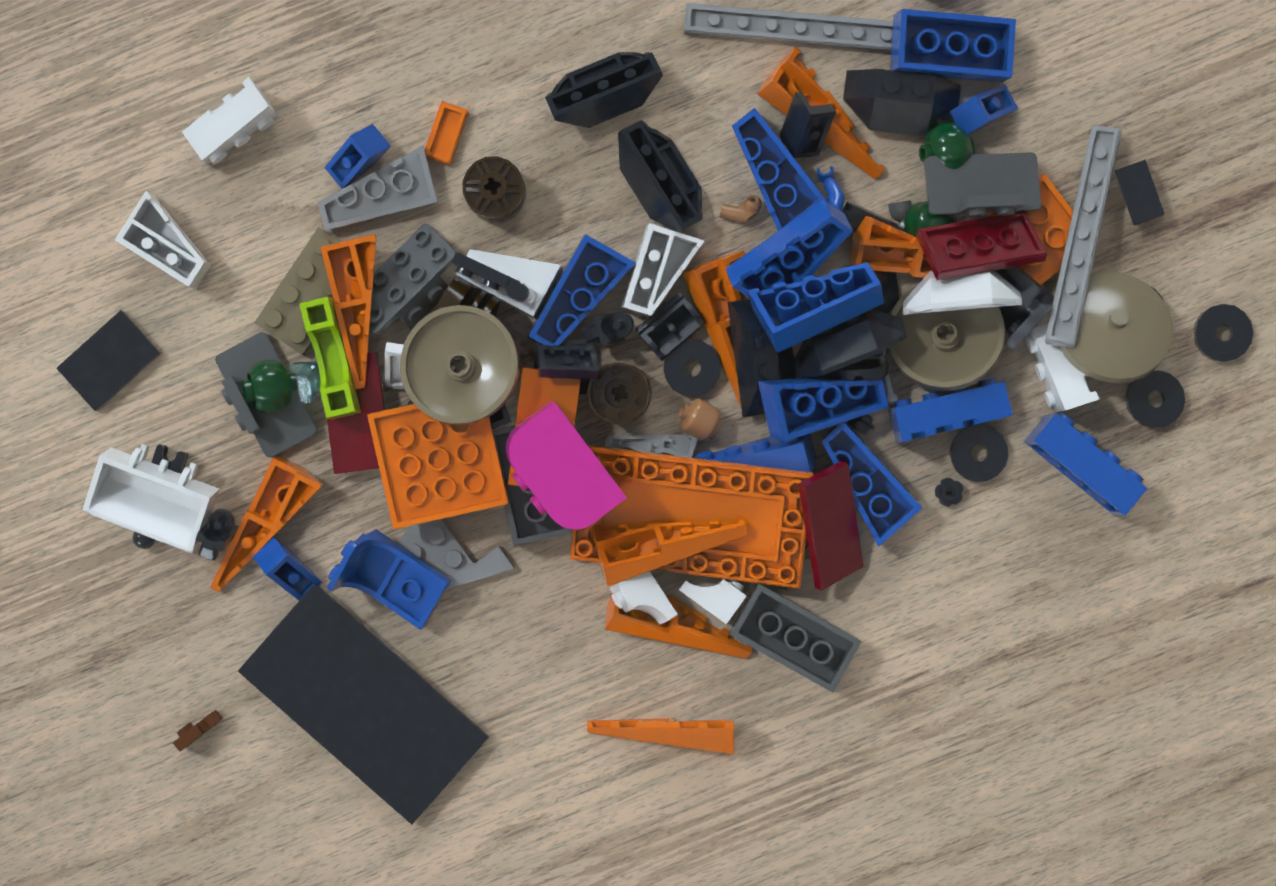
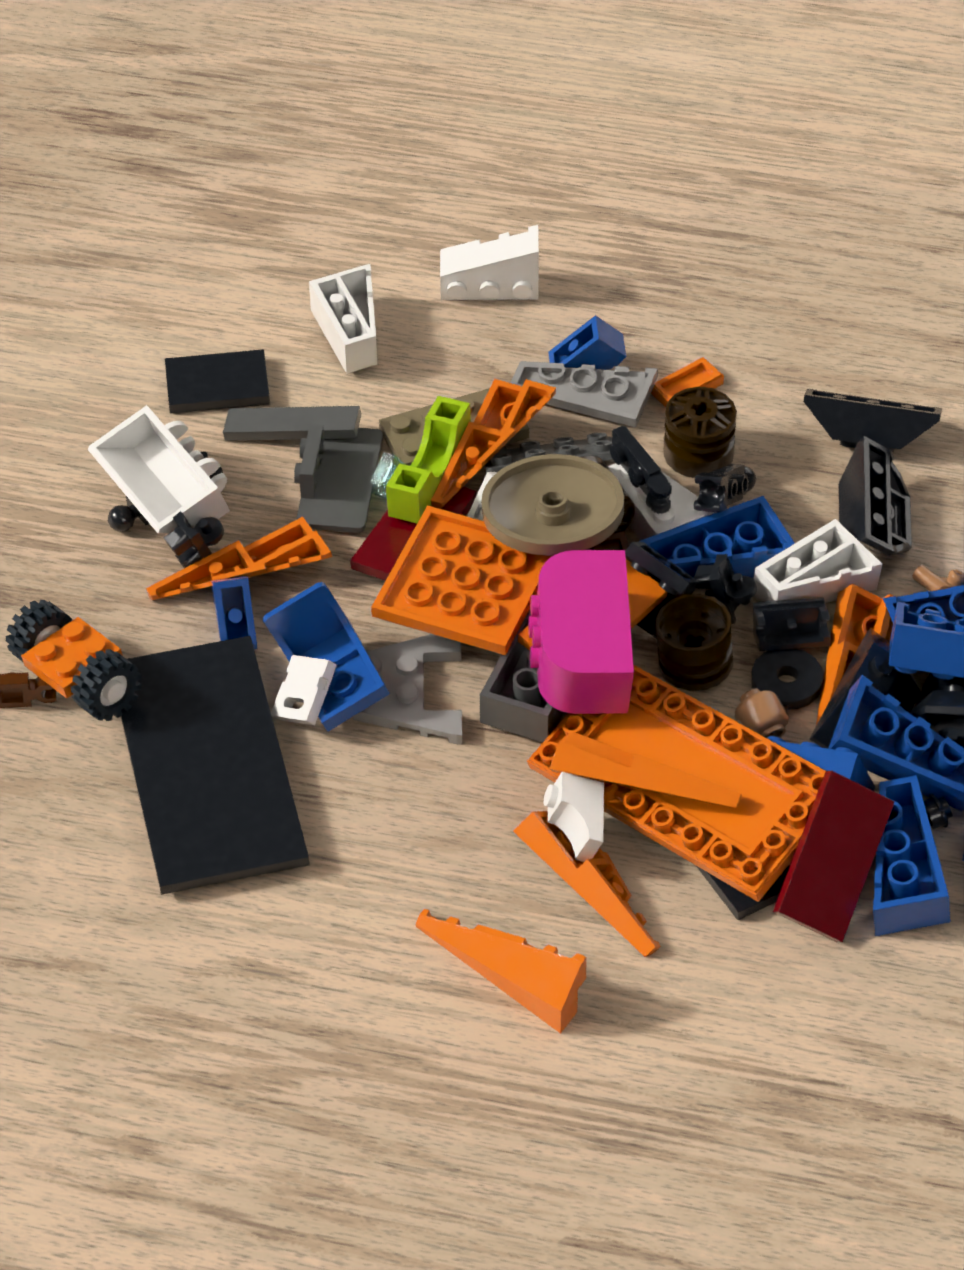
camera: 30 degrees right, 40 degrees down
(196, 370) = (291, 422): none -> dark grey tile
(219, 698) = (74, 659): none -> plate
(269, 386) = (350, 453): dark green plant -> none
(388, 605) = (307, 683): none -> white piece
(552, 259) = (723, 487): none -> black plate
(719, 599) = (656, 874): white arch -> none
(795, 637) = (715, 949): dark grey brick -> none

